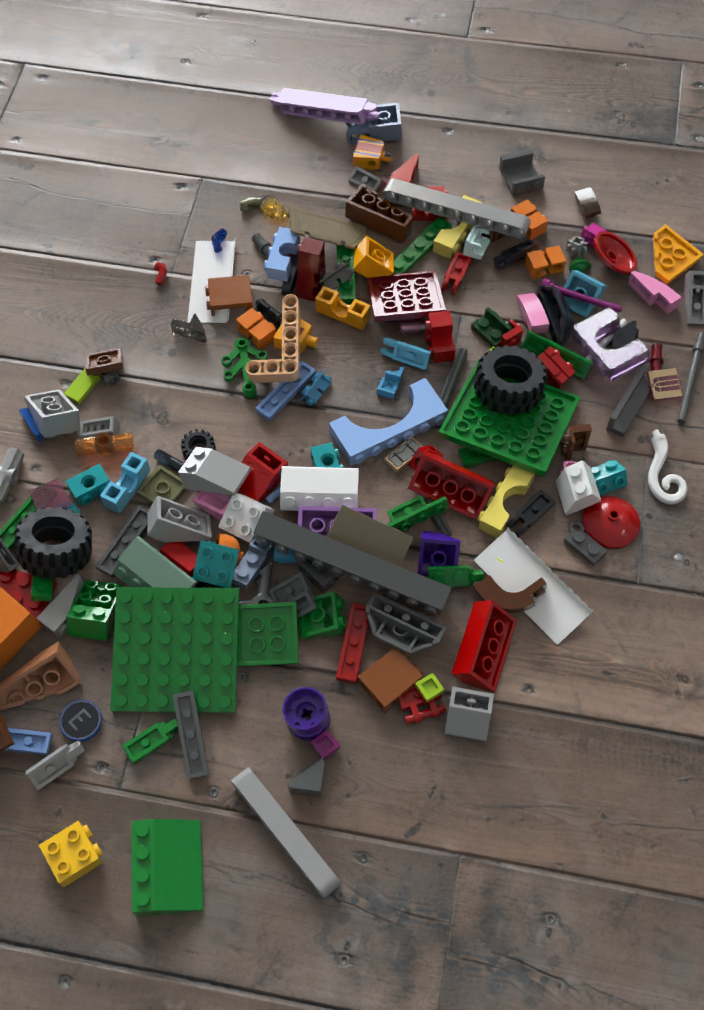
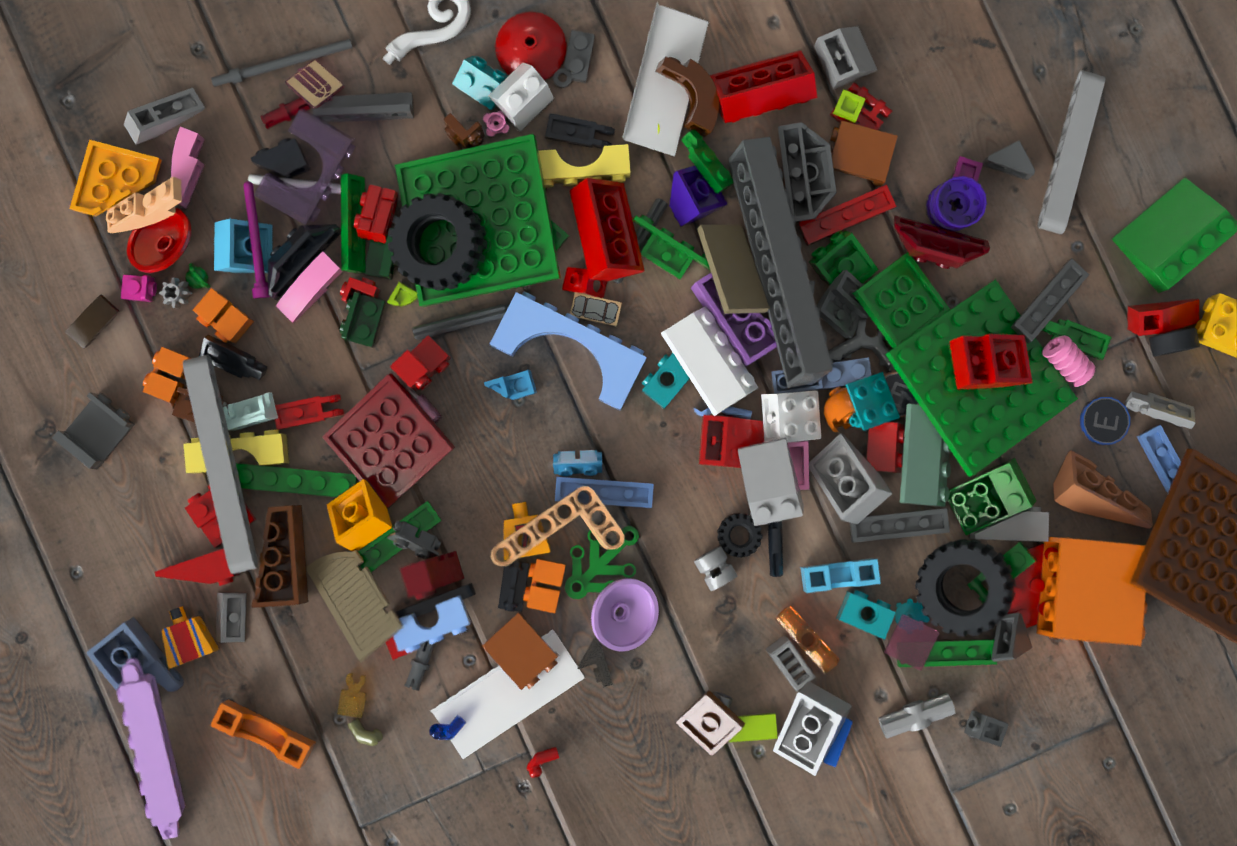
camera: 130 degrees left, 25 degrees up
(92, 801) = (1174, 342): none -> black tyre
(115, 810) = (1162, 316): none -> red slope
(140, 717) = (1069, 360): none -> bright pink piece
(162, 484) = (812, 537): olive tile -> none
(179, 653) = (990, 361): none -> red slope
(189, 419) = (712, 560): none -> light grey wheel
(197, 353) = (635, 618): none -> lavender dish
(290, 674) = (939, 244): none -> dark red wedge
(307, 150) = (247, 724): none -> orange arch
(331, 305) = (454, 503): light orange arch -> none
(406, 353) = (465, 393): medium azure hinge -> none
(639, 255) = (145, 209): none -> light nougat slope

